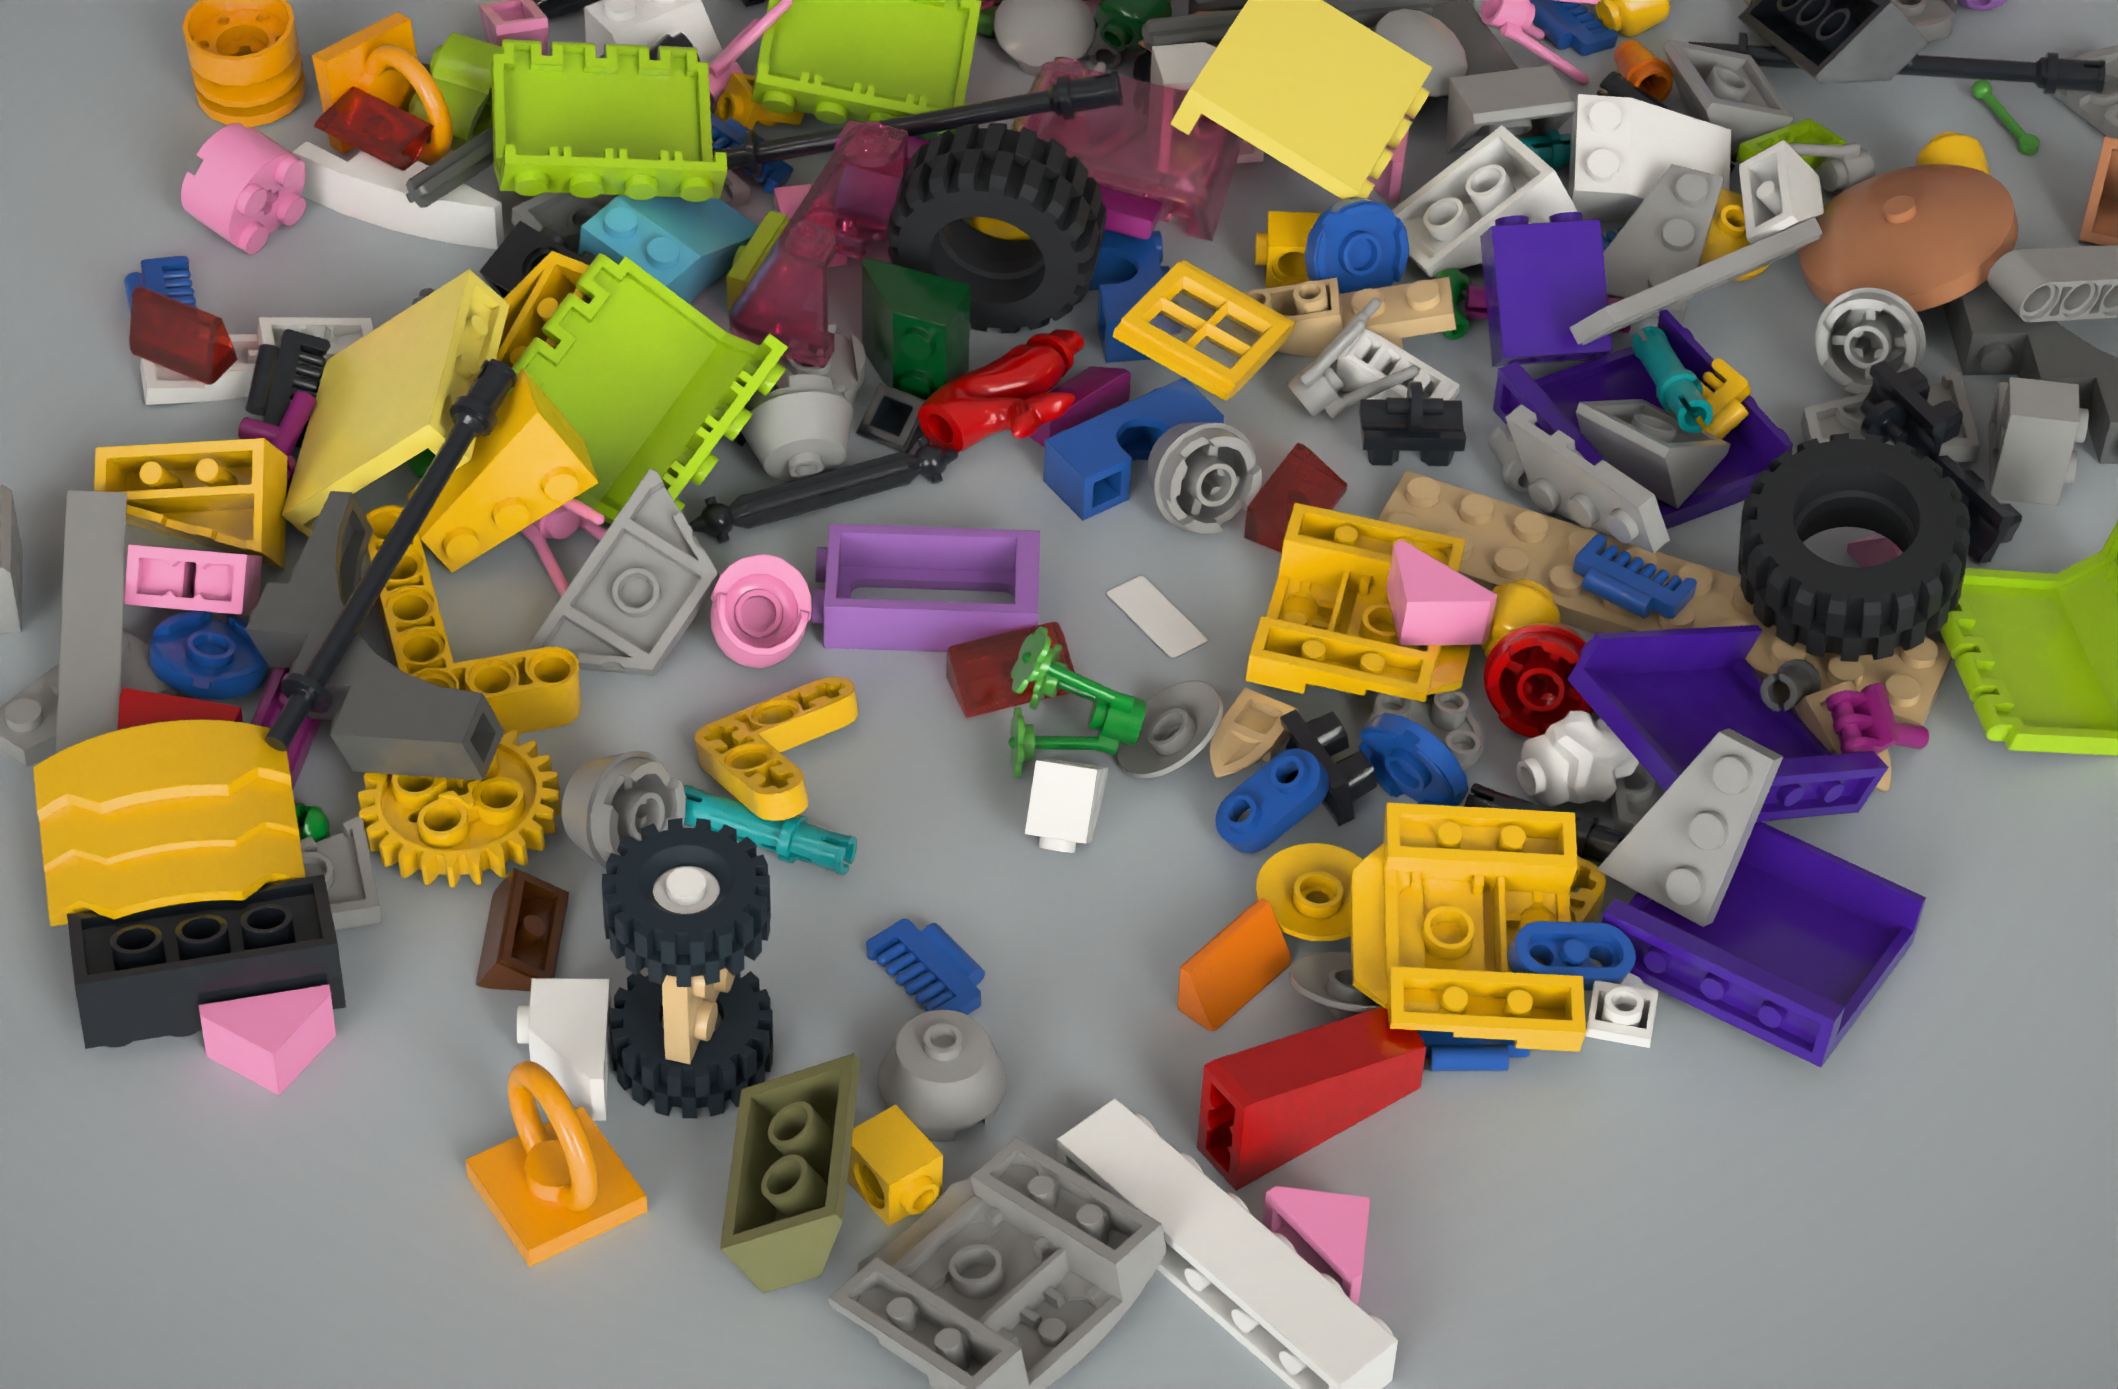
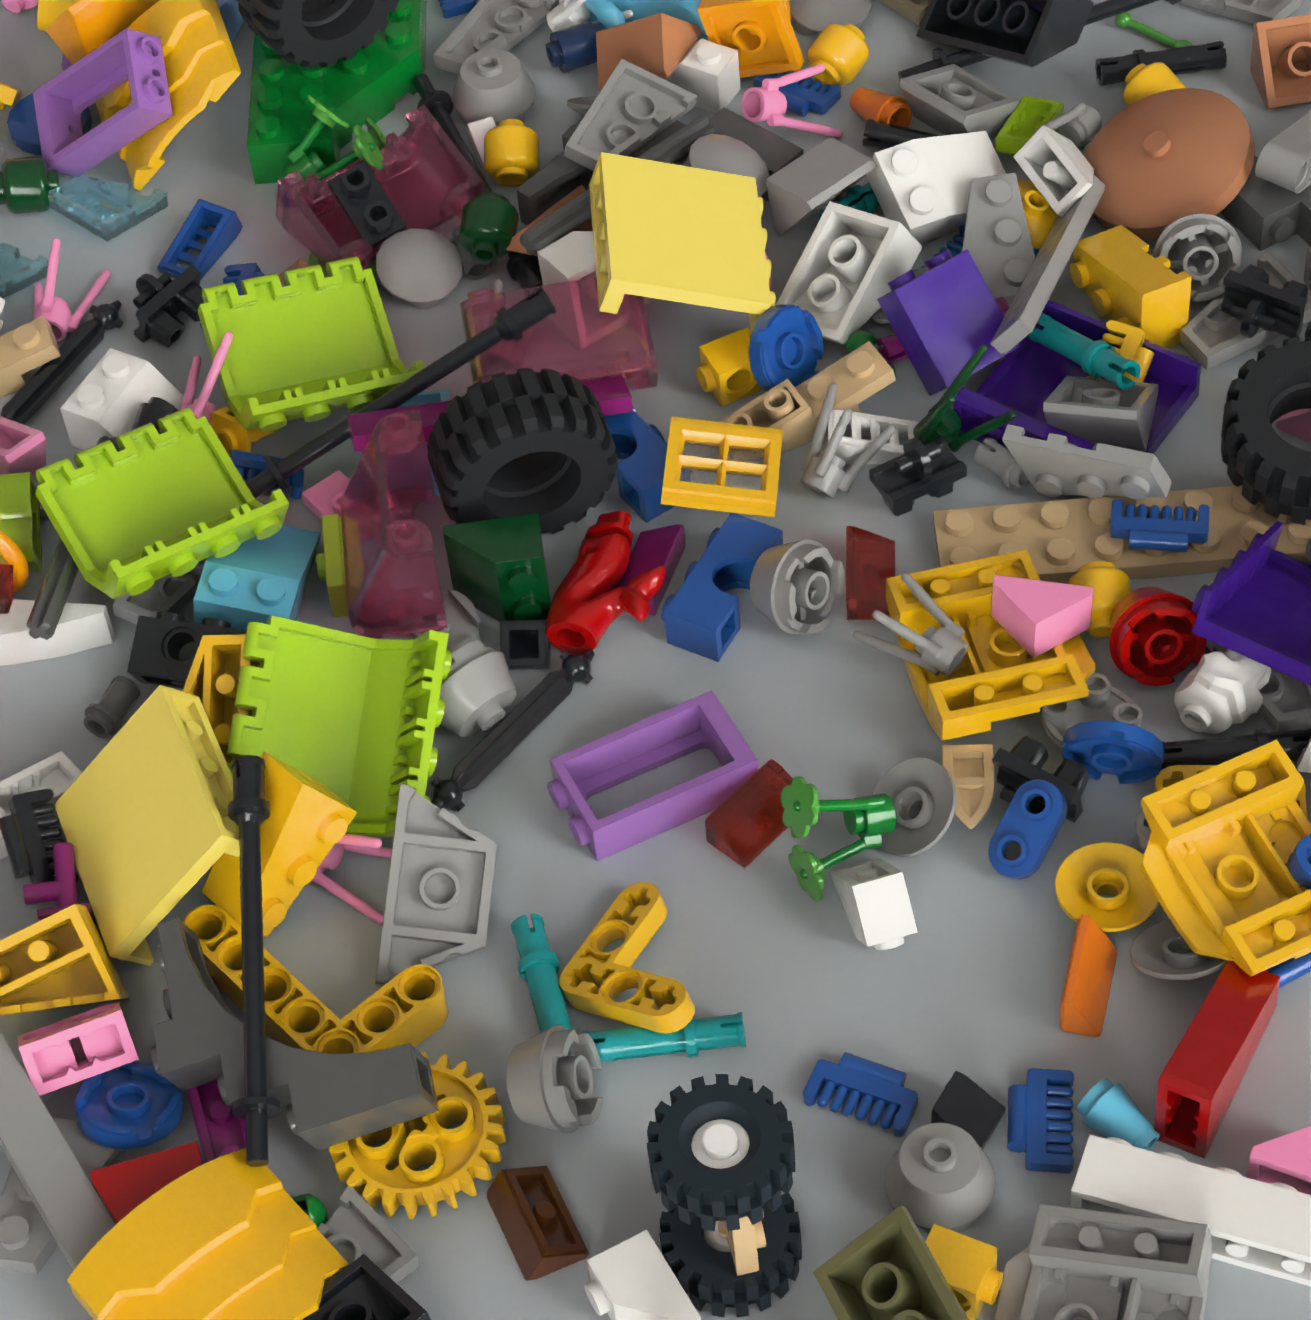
camera: 20 degrees left, 5 degrees up
(687, 712) = (539, 969): none -> teal pin
(760, 610) = (545, 858): bright pink helmet -> none
(1019, 1030) = (969, 1108): none -> black slope
(1084, 1063) = (1028, 1119): none -> blue piece
(1156, 616) = (827, 715): white sticker -> none
(1165, 1098) = (1114, 1114): none -> medium azure cone
(1302, 590) = (940, 648): none -> light grey plant
(1479, 390) = (946, 423): none -> dark green plant
(1778, 344) = (1132, 284): none -> yellow wedge
(1999, 148) = (1179, 61): none -> black pin

